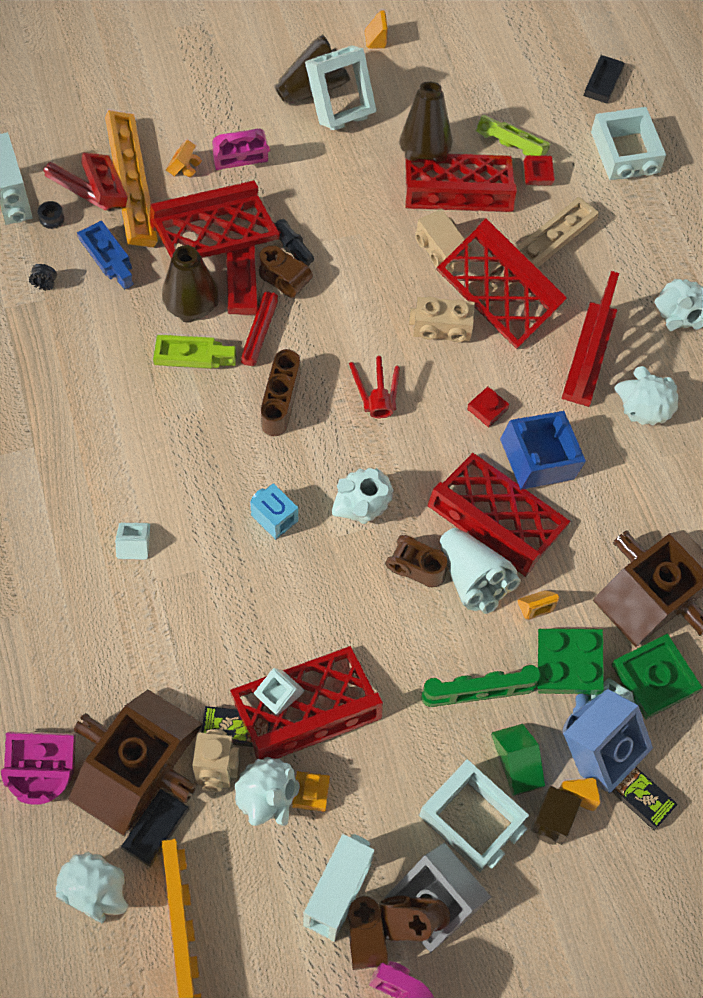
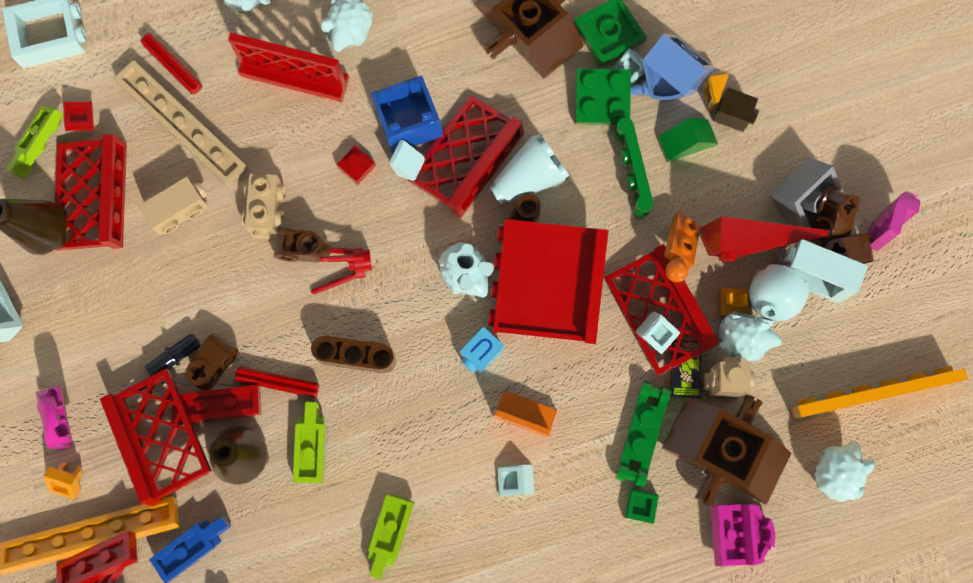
camera: 90 degrees left, 15 degrees up
(87, 664) = (641, 506): none -> green tile
(94, 417) = (389, 533): none -> lime hinge
(155, 826) = (783, 428): black tile -> none
(167, 672) = (643, 433): none -> green plate
(200, 551) = (525, 414): none -> orange panel
(310, 826) = (778, 293): none -> light aqua cylinder
(347, 578) = (549, 280): none -> red panel
(378, 724) = (681, 246): none -> orange plate
(381, 790) = (739, 238): none -> red wedge
(398, 351) = (297, 244): none -> reddish brown piece
(471, 775) = (727, 191): light aqua window -> none
(489, 448) = (406, 161): none -> light aqua slope
(514, 263) = (205, 136): red fence -> none
(538, 604) = (551, 122): light orange slope -> none
(598, 247) = (171, 63): none -> red axle
(645, 798) = (712, 42): tile -> none

